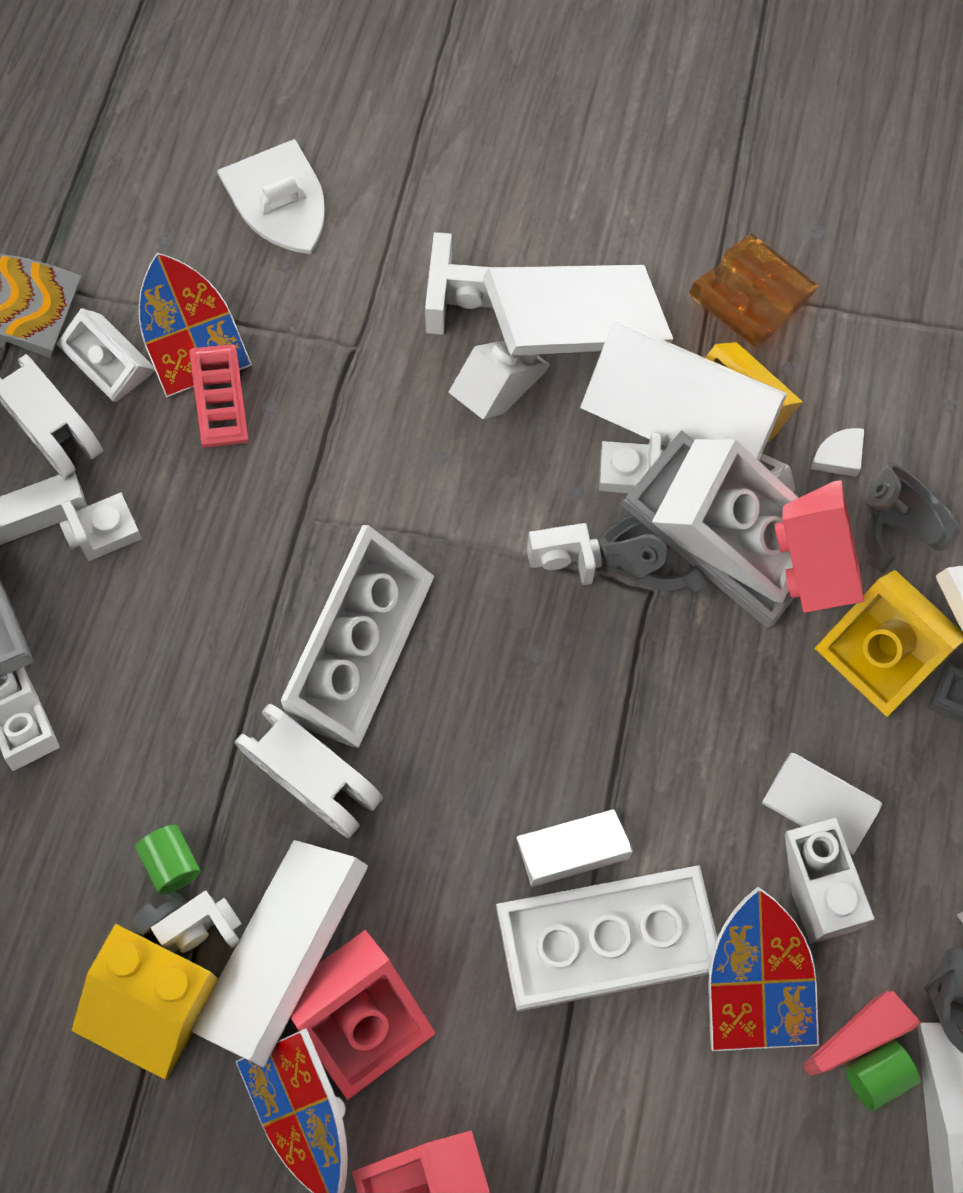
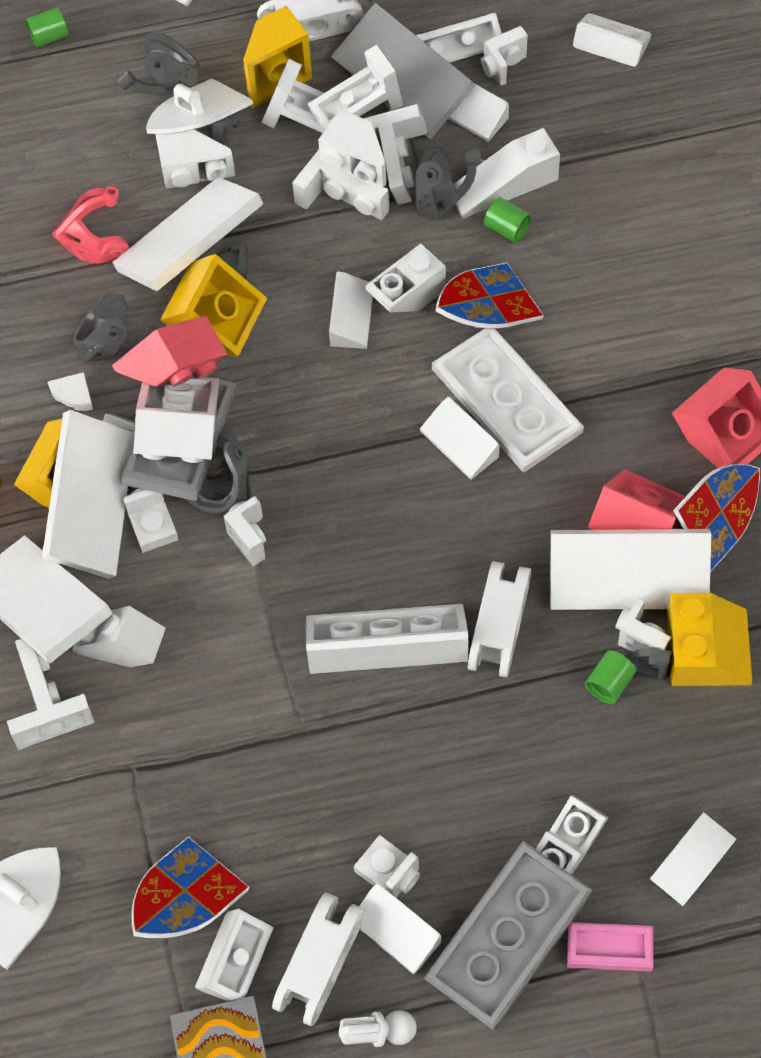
camera: 110 degrees left, 5 degrees down
(218, 366) = (231, 854): coral slope -> none
(874, 1025) = (490, 237): coral slope -> none

